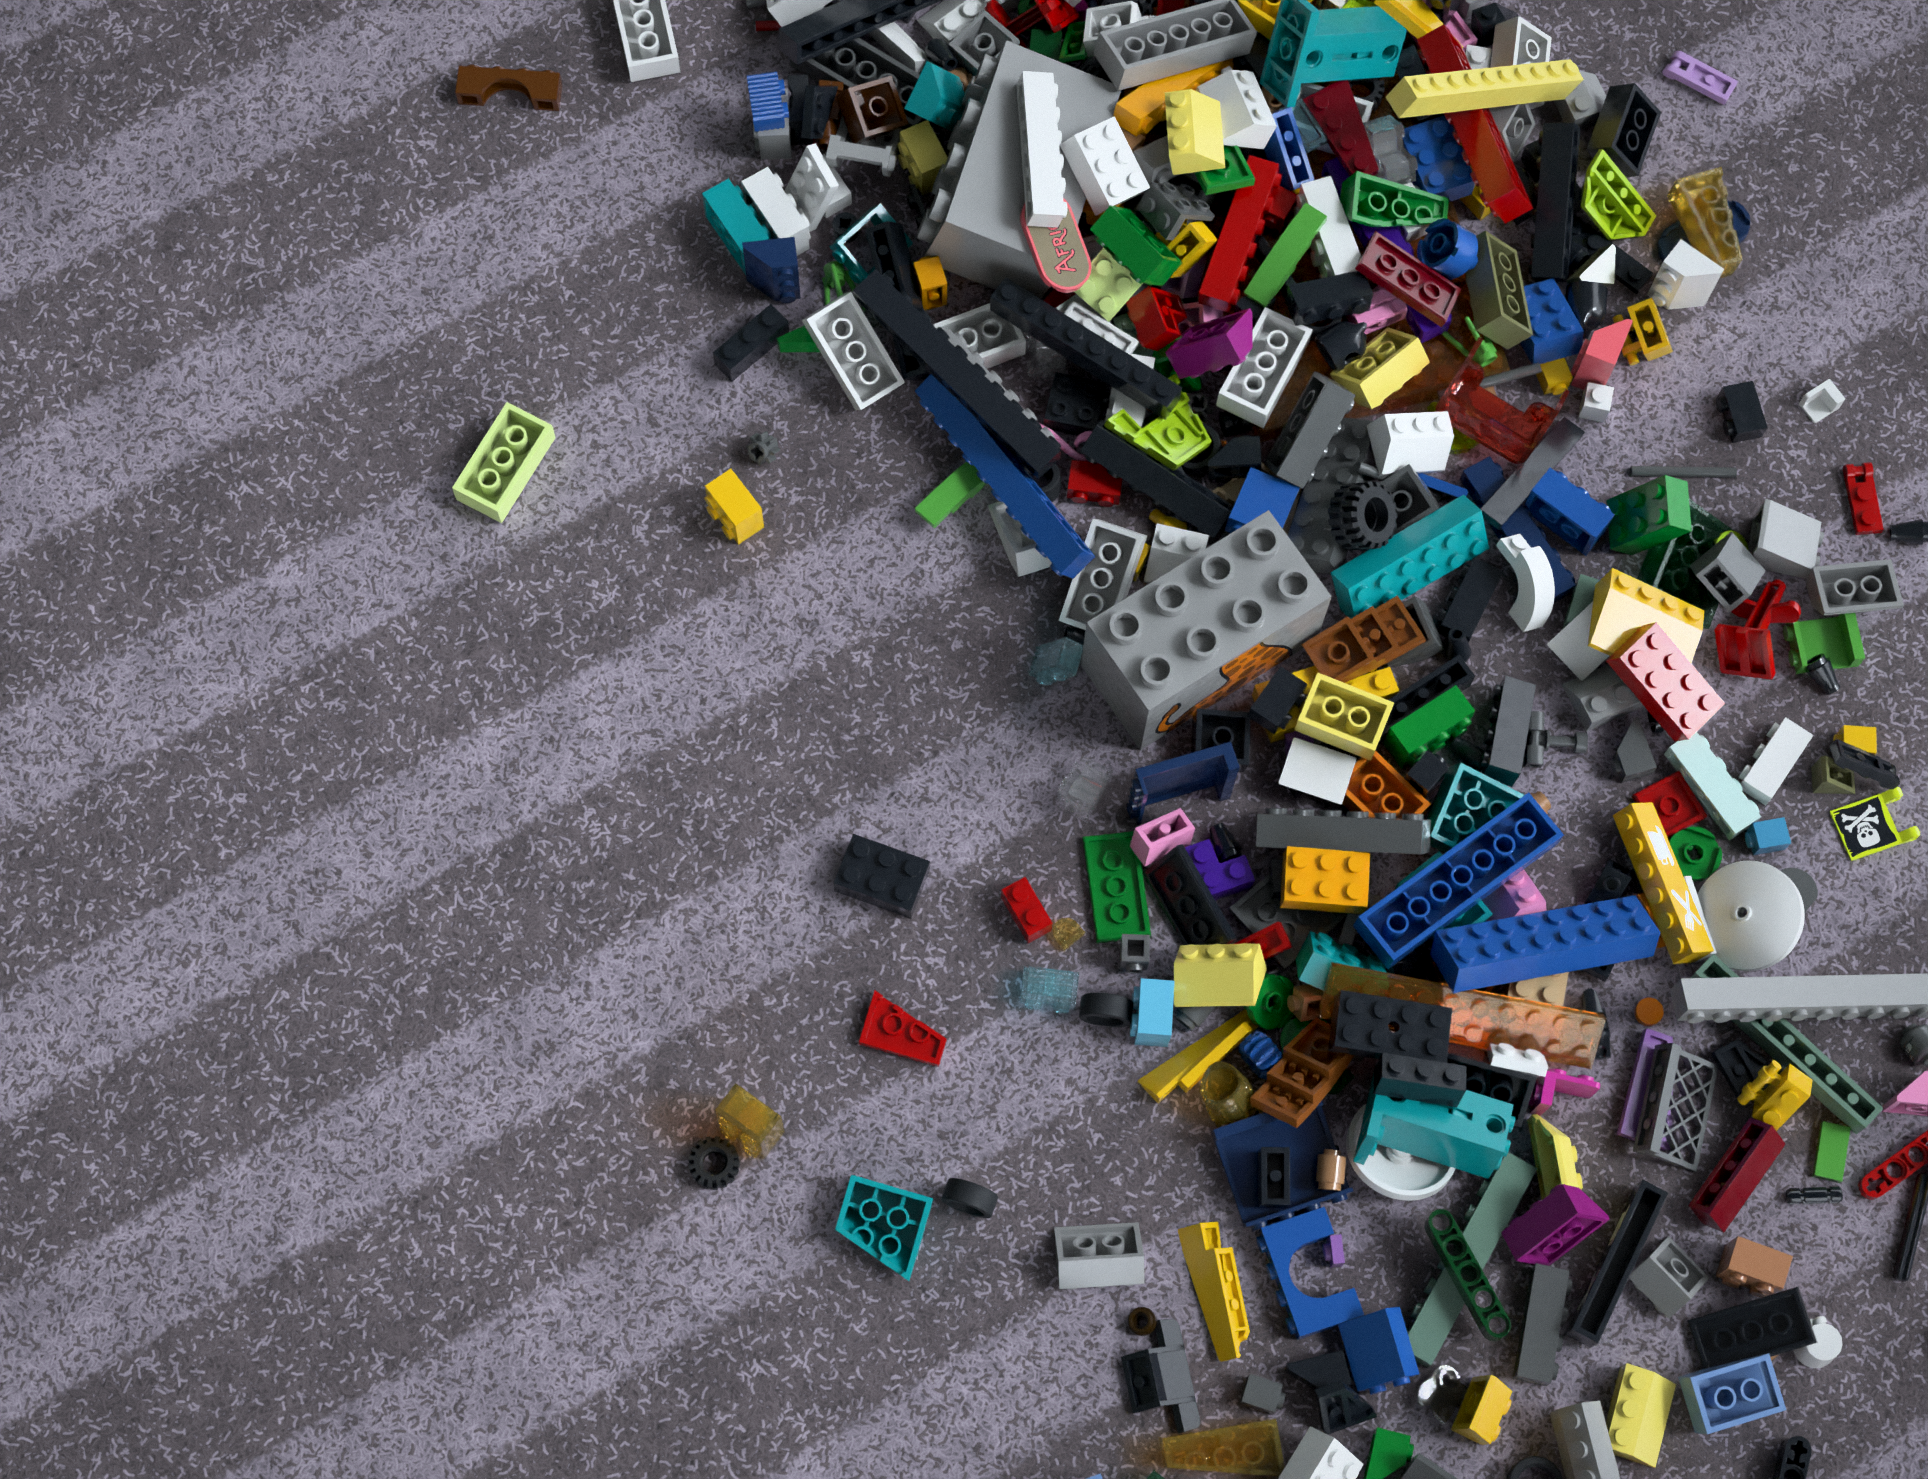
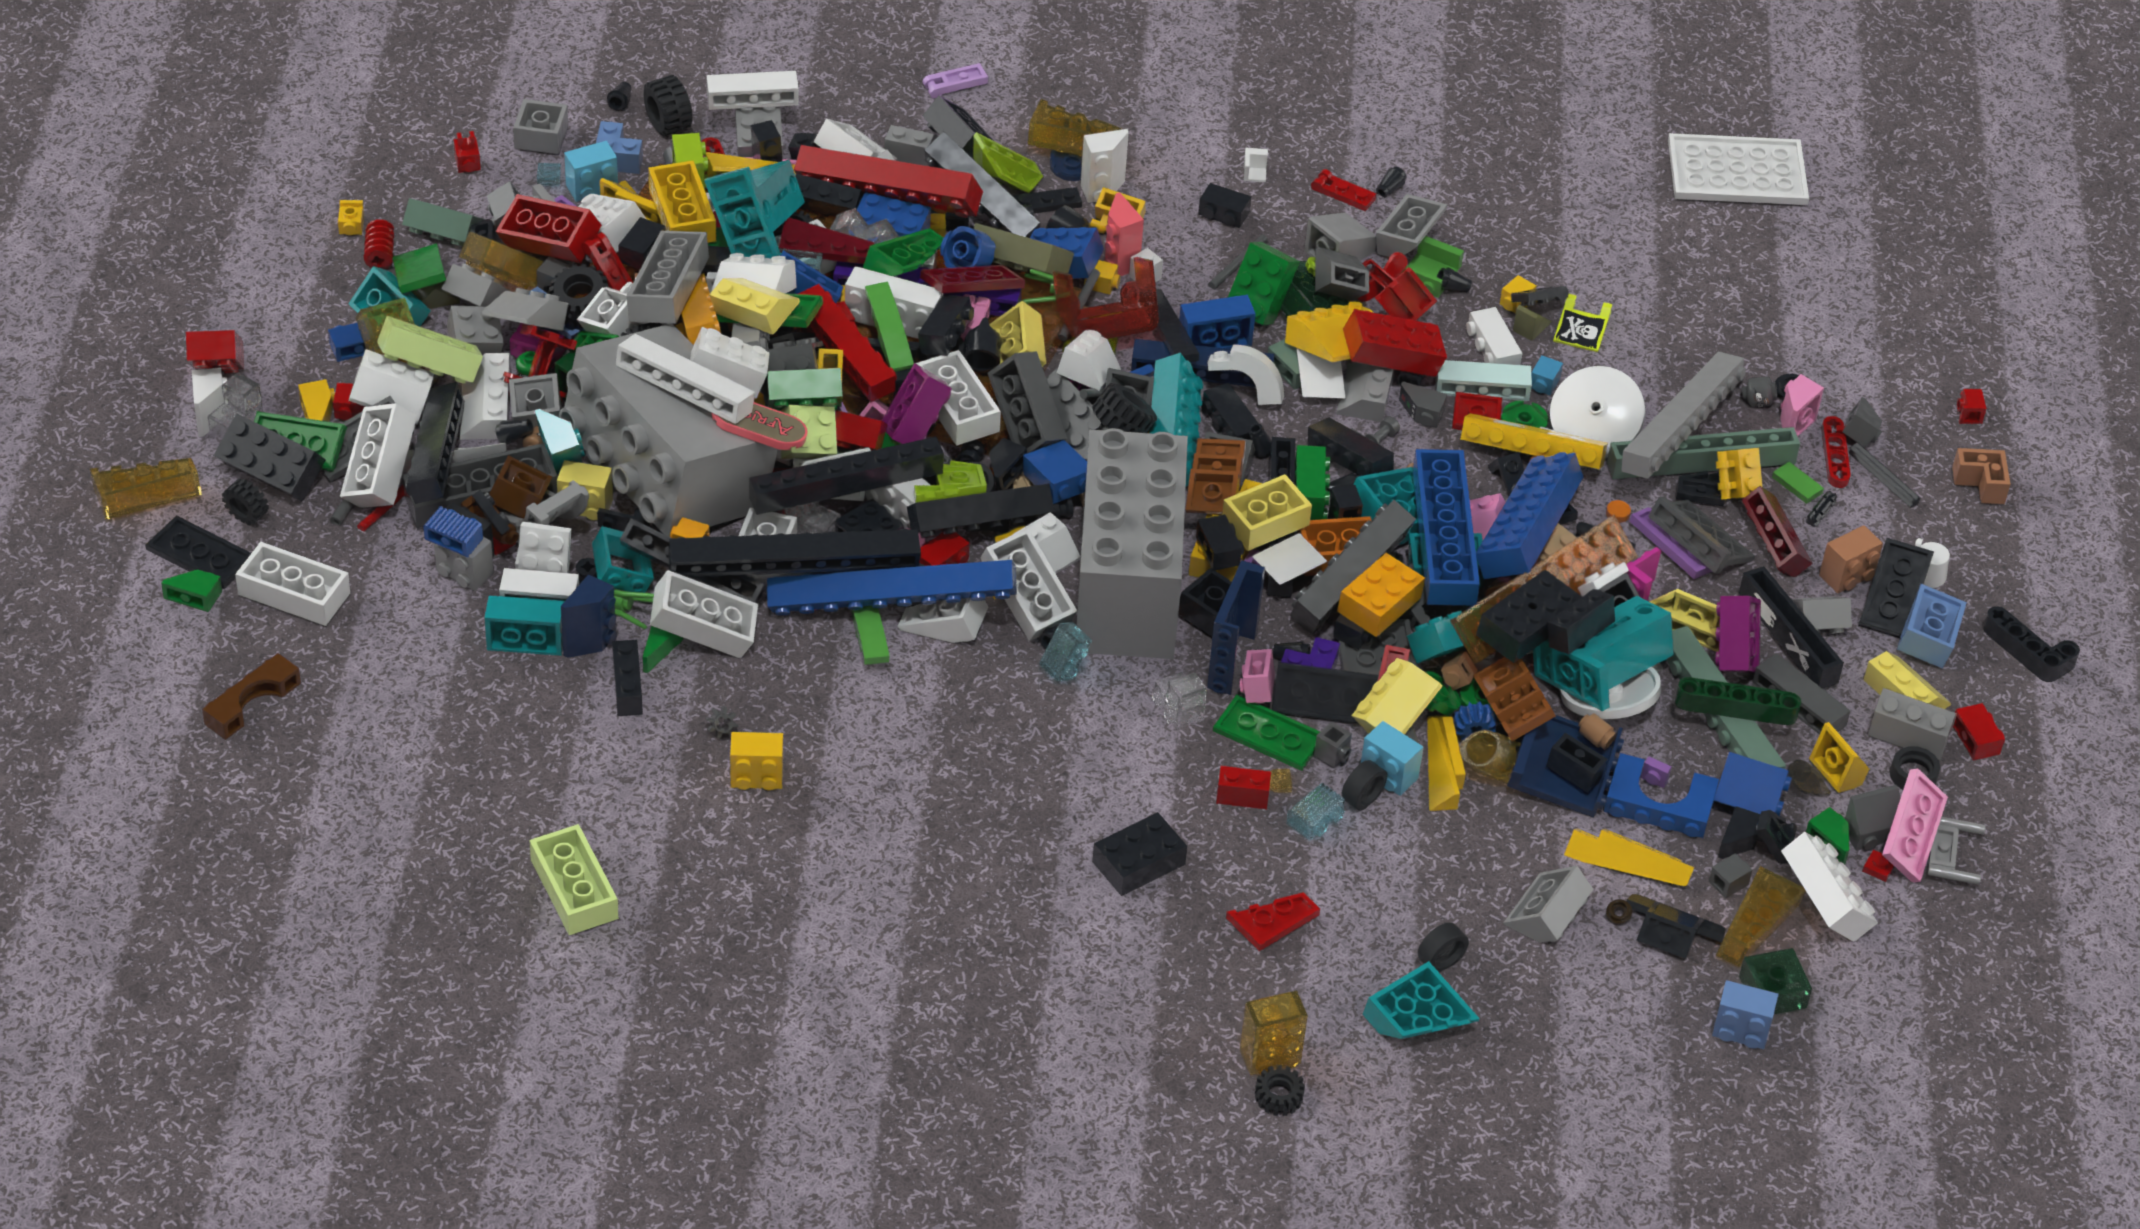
camera: 55 degrees left, 25 degrees down
(1483, 88) = (880, 143): light yellow brick -> none
(1597, 268) = (1046, 202): slope -> none

